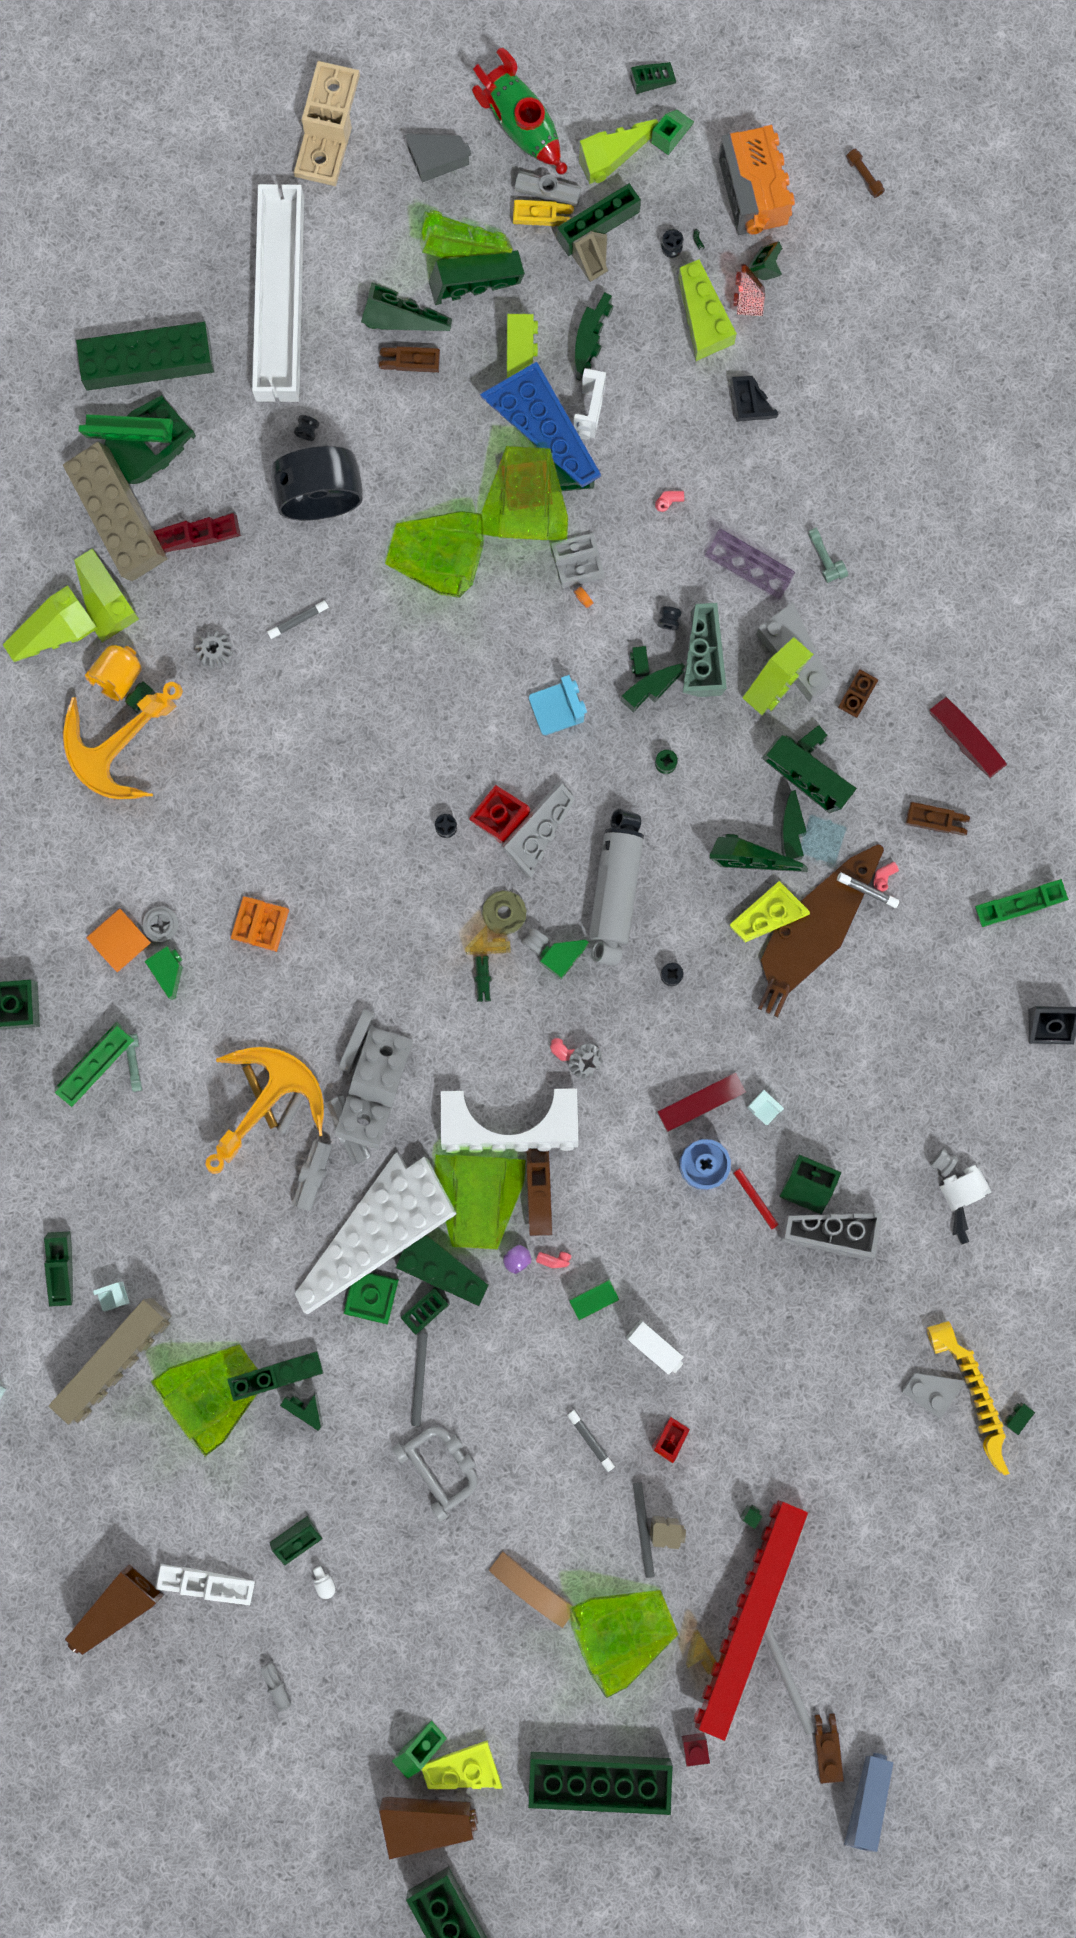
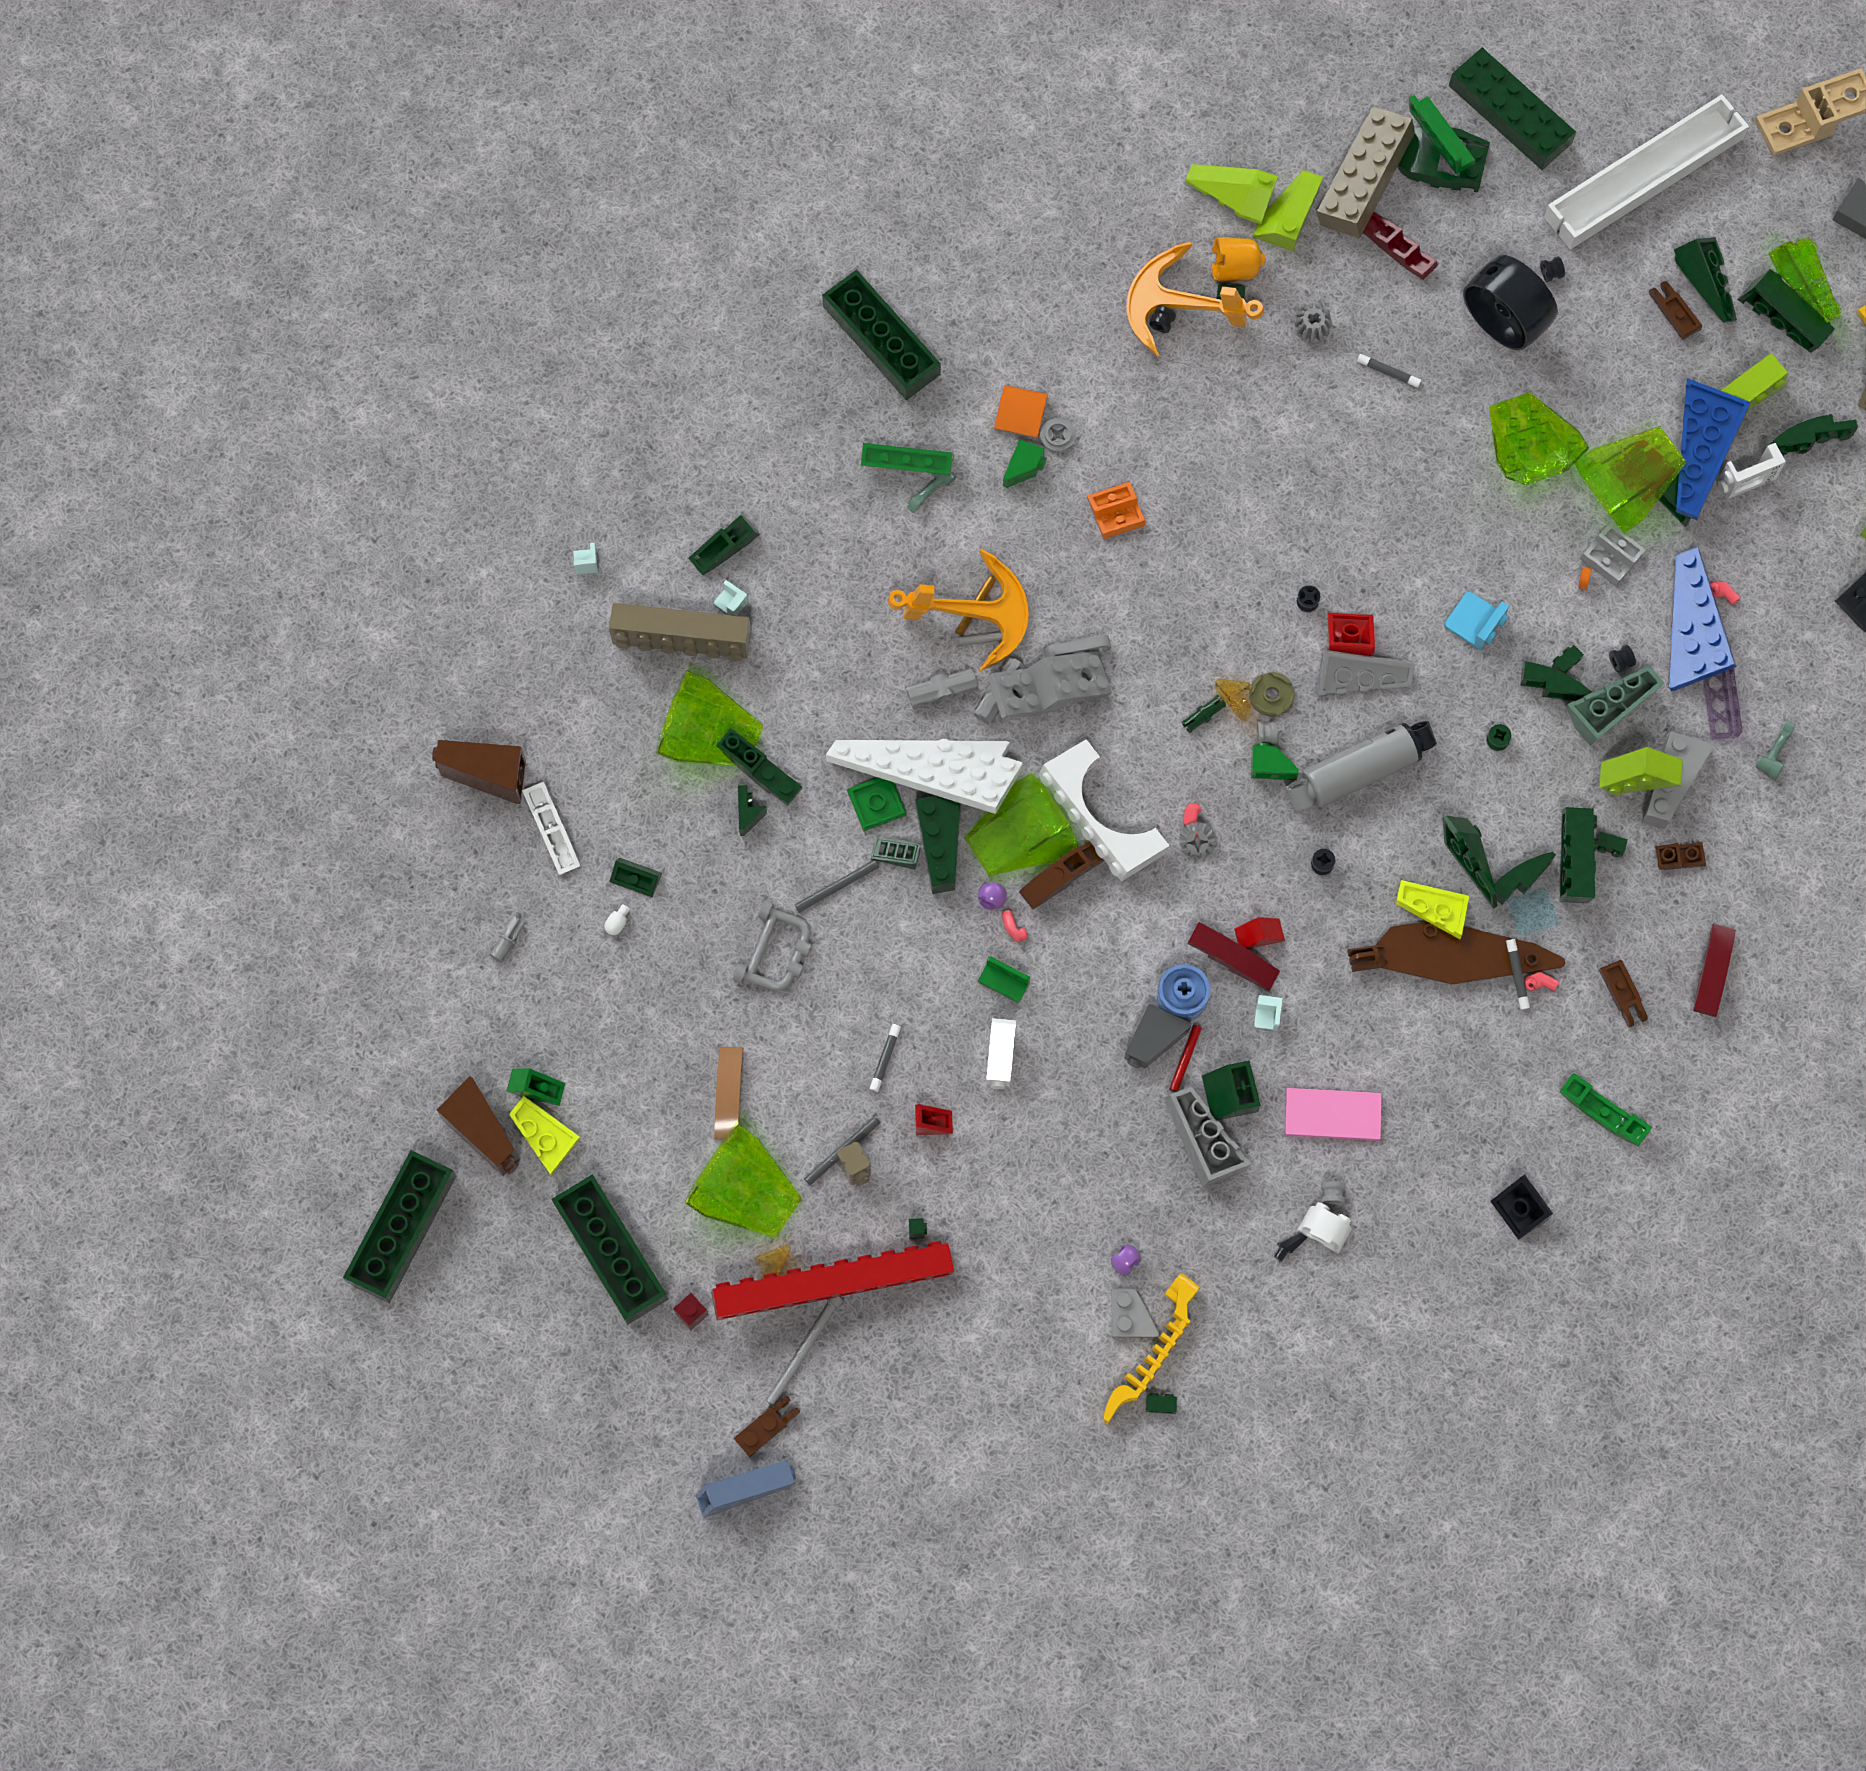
camera: 55 degrees right, 10 degrees down
(122, 768) = (1162, 319): none -> black wheel
(691, 545) = (1698, 633): none -> wing
(695, 1067) = (1259, 932): none -> red slope
(723, 1212) = (1154, 1036): none -> dark grey slope
(879, 1115) = (1333, 1114): none -> bright pink tile
(888, 1365) = (1125, 1259): none -> medium lavender piece

